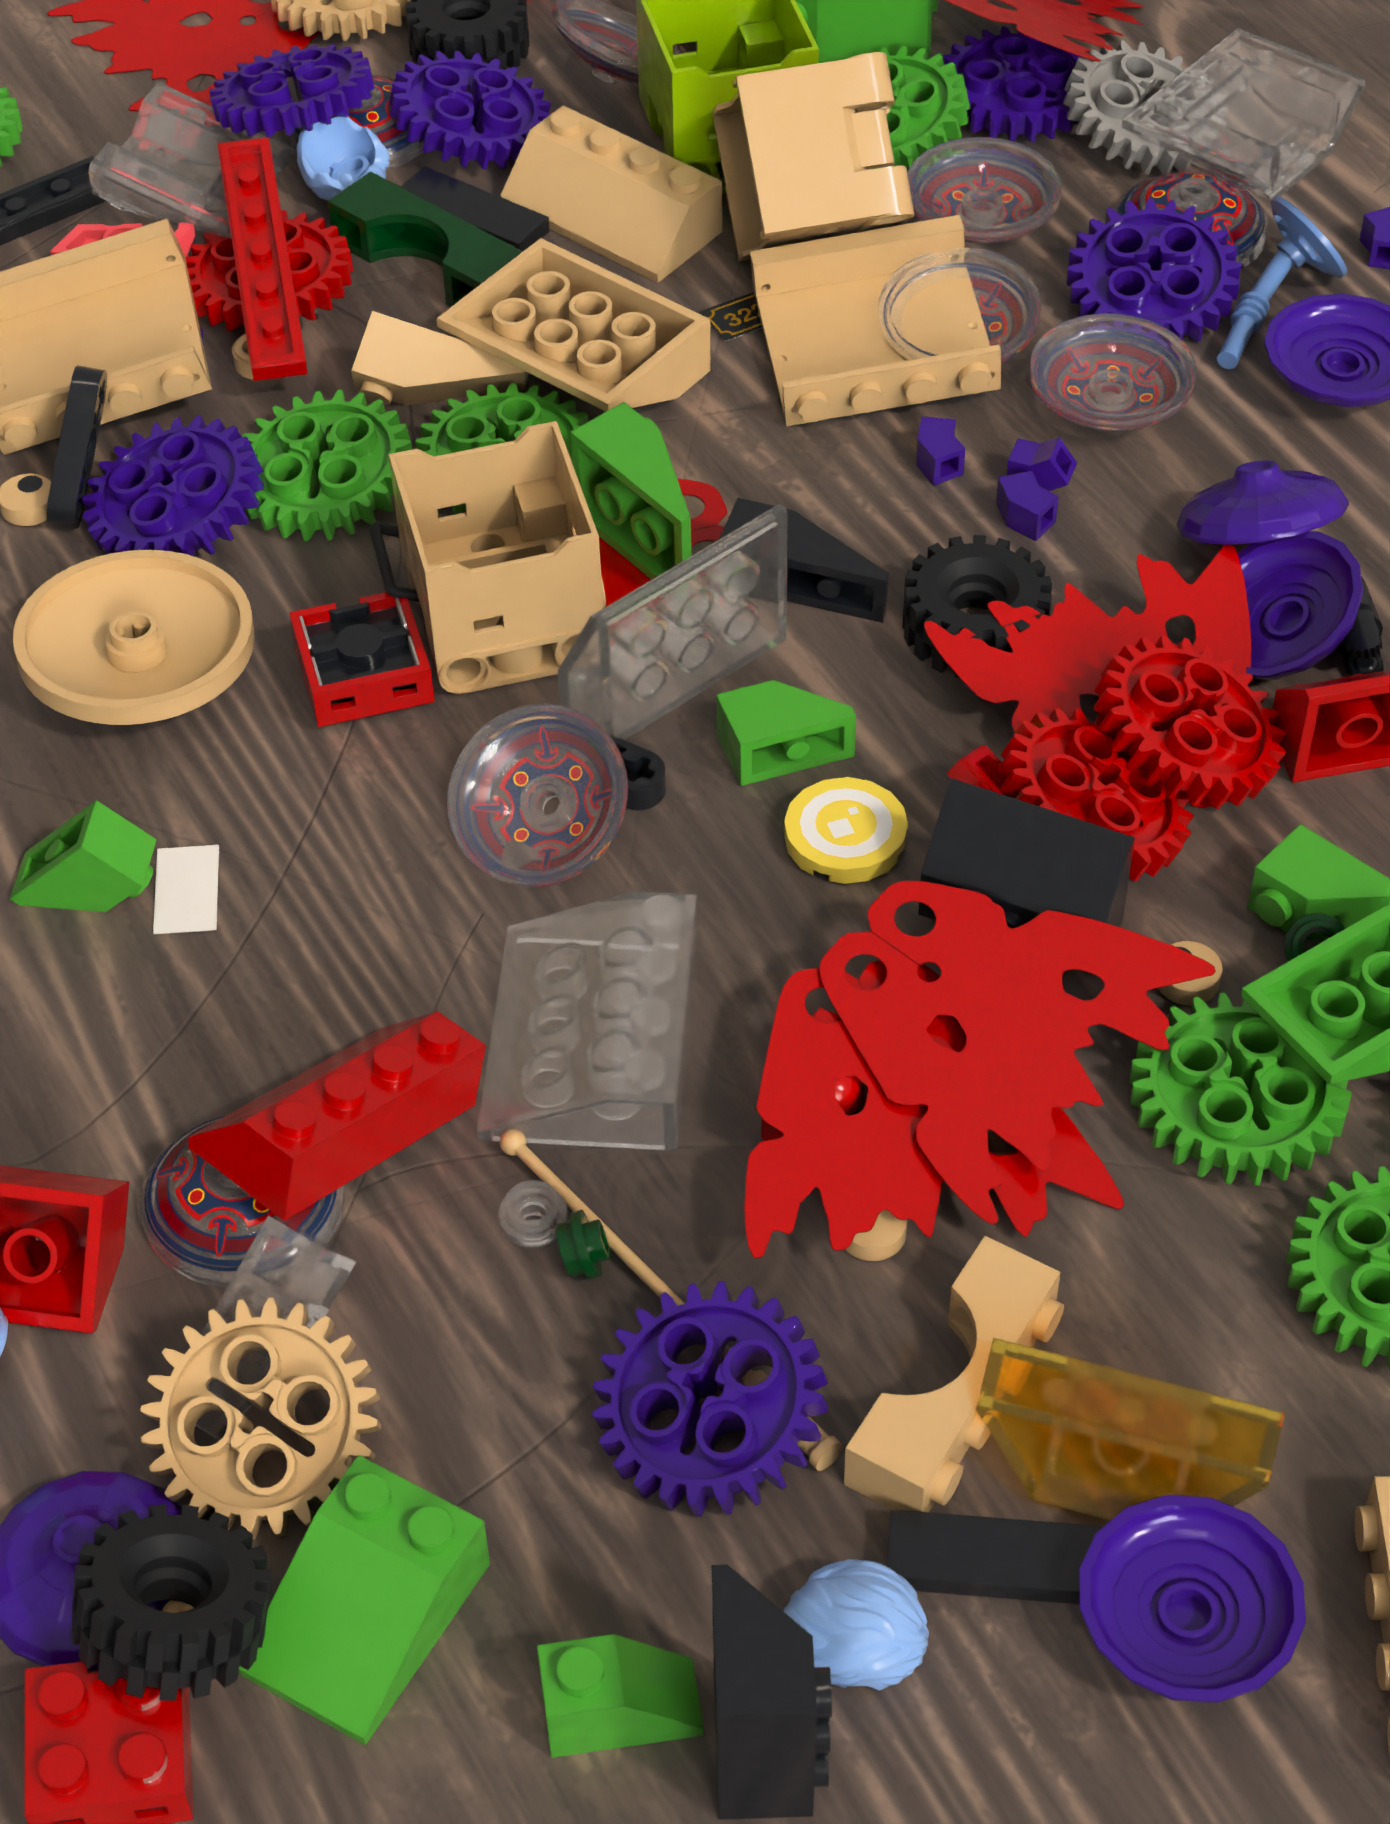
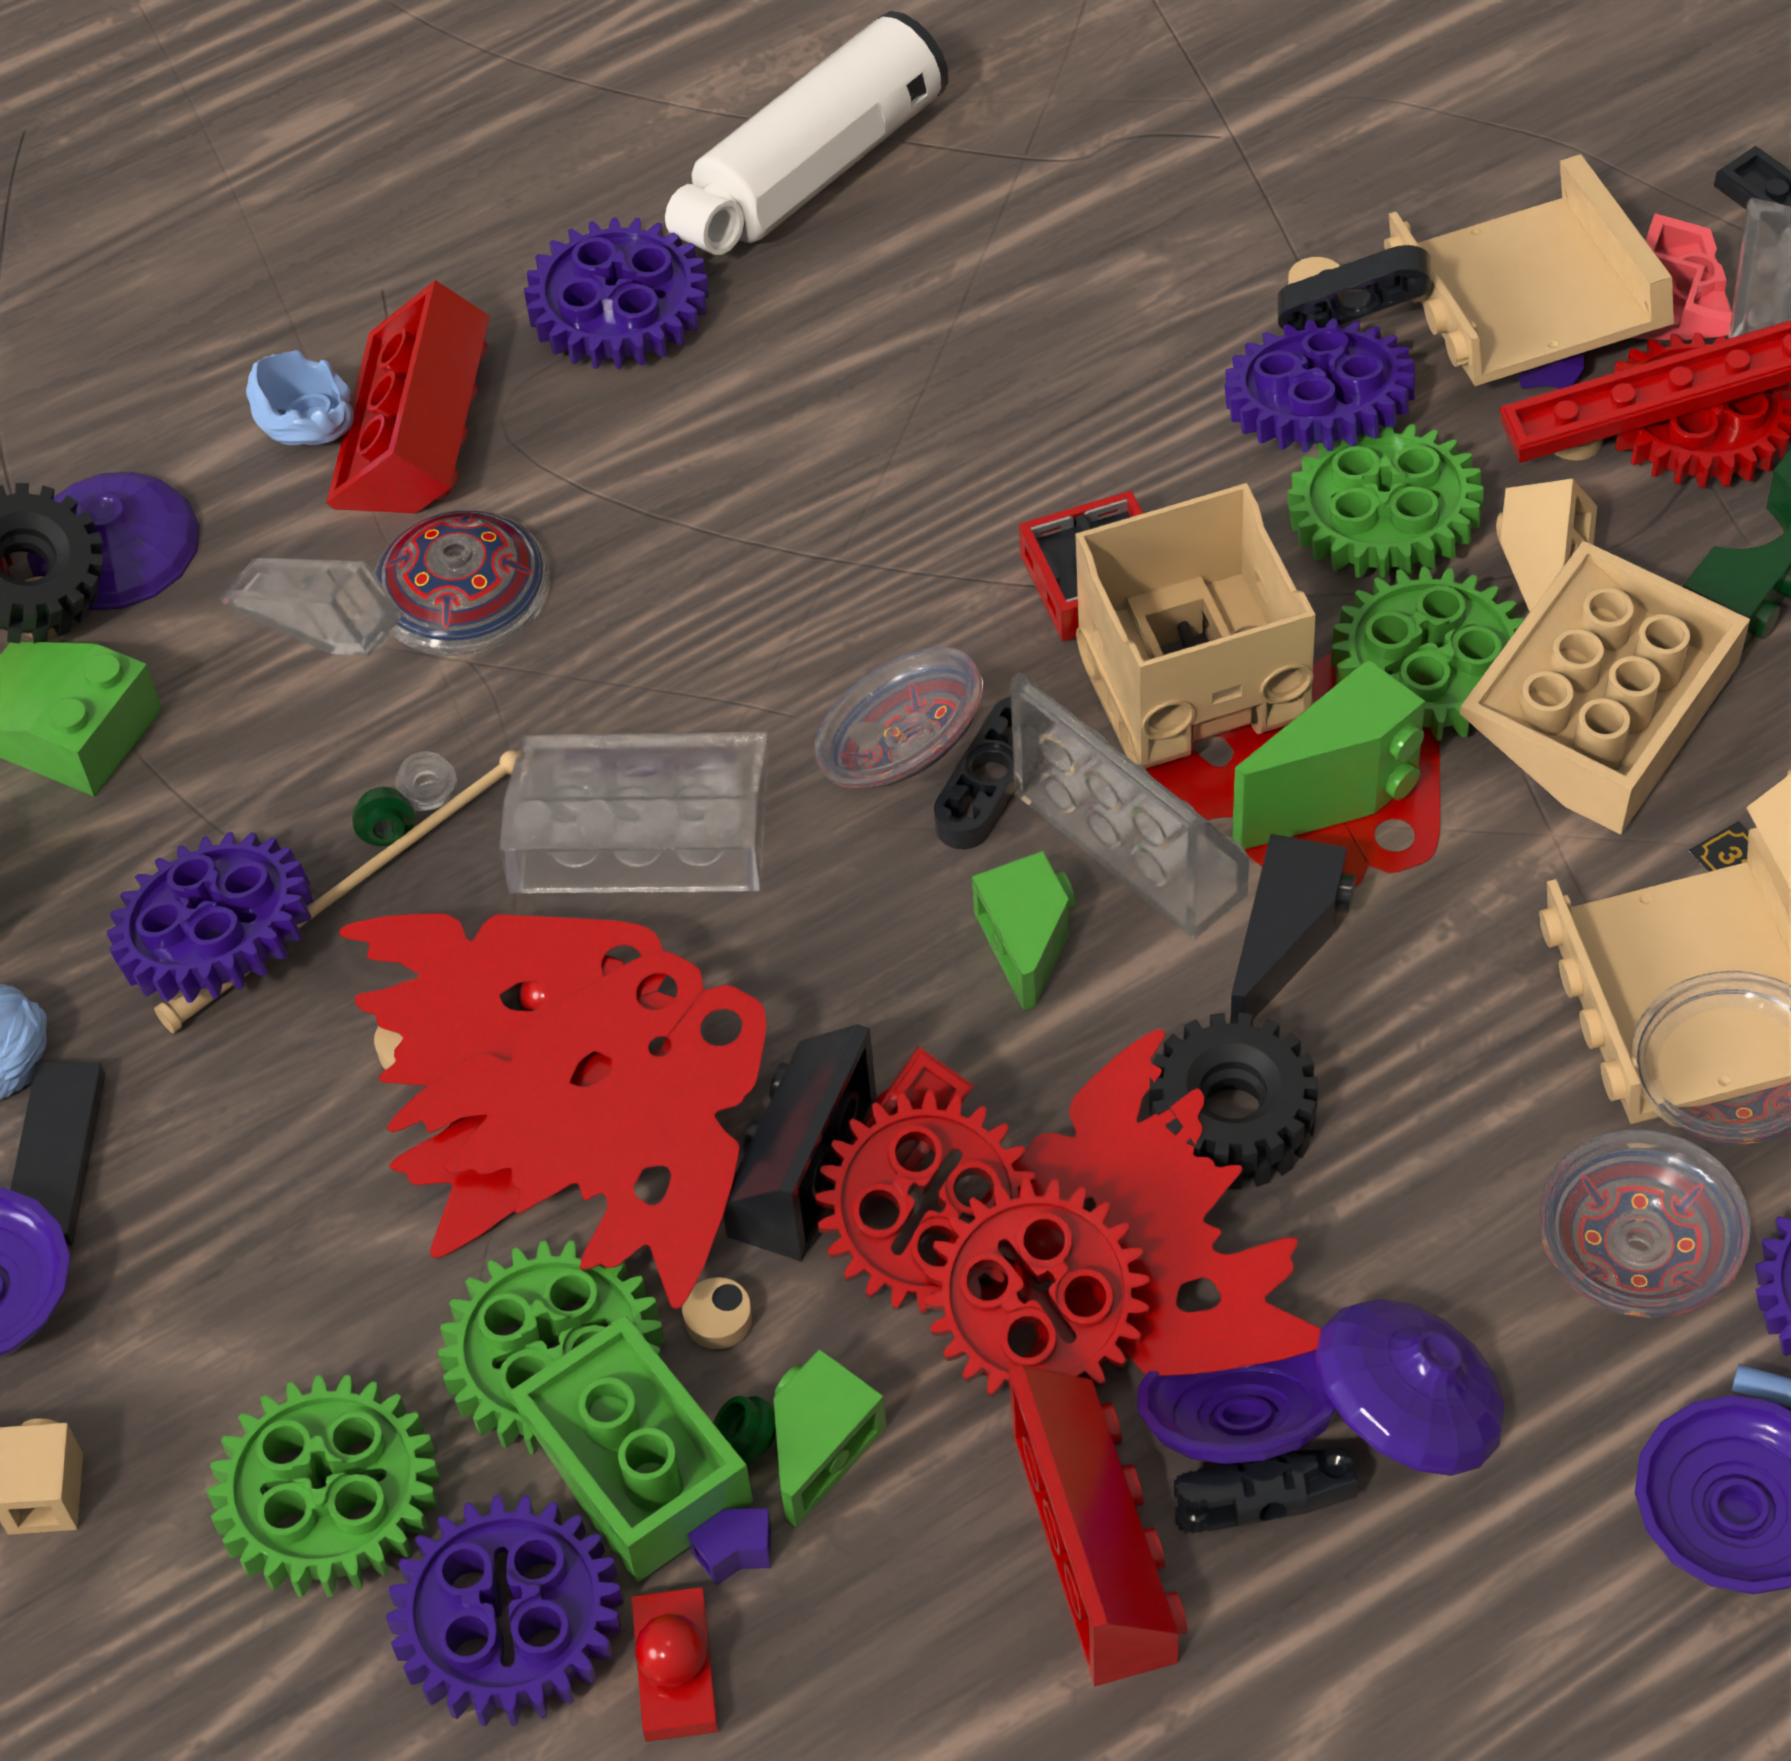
camera: 90 degrees right, 5 degrees up
(86, 863) = (814, 408): bright green slope -> none
(133, 637) = (1099, 384): tan dish -> none
(186, 889) = (814, 491): white sticker -> none
(299, 1363) = (206, 605): tan gear -> none
(346, 1113) = (506, 614): red slope -> none
(846, 829) = (906, 998): light yellow tile -> none
(913, 1444) = (290, 1138): tan arch -> none
(939, 451) = (1507, 1062): dark purple piece -> none
(1026, 504) = (1423, 1152): dark purple piece -> none
(1048, 461) = (1490, 1163): dark purple piece -> none
(1119, 1437) = (154, 1223): clear yellow wedge -> none

